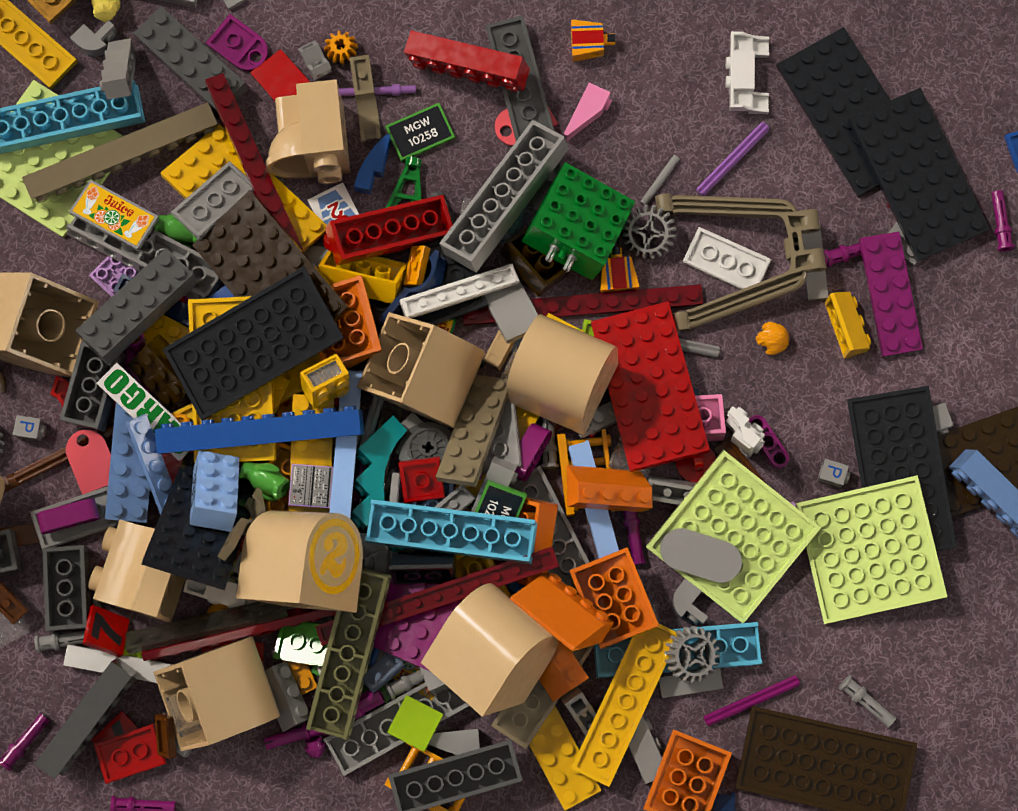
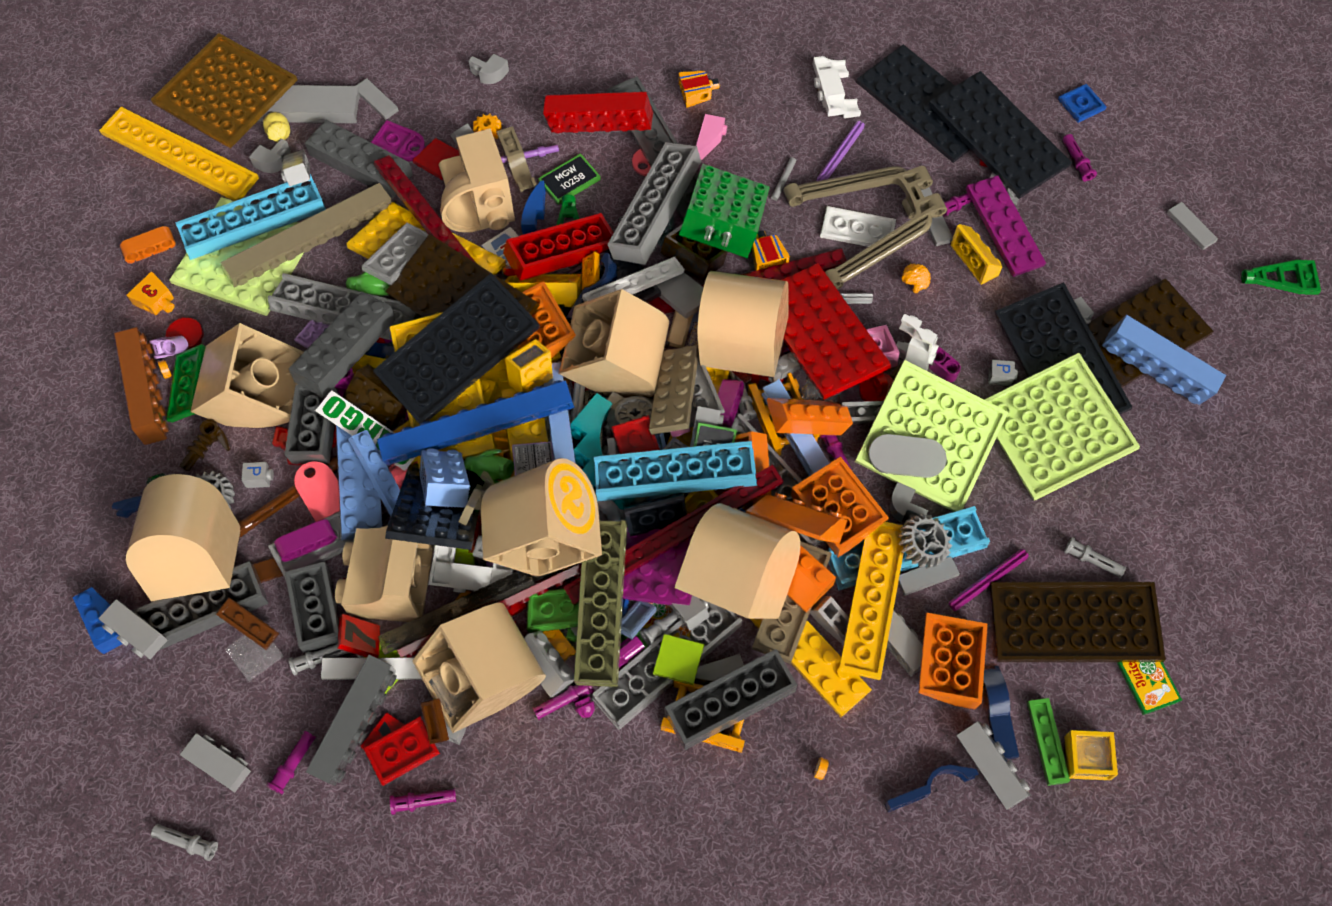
camera: 15 degrees left, 15 degrees down
(114, 215) = (310, 280): tile -> none
(646, 240) = (786, 198): light grey gear -> none

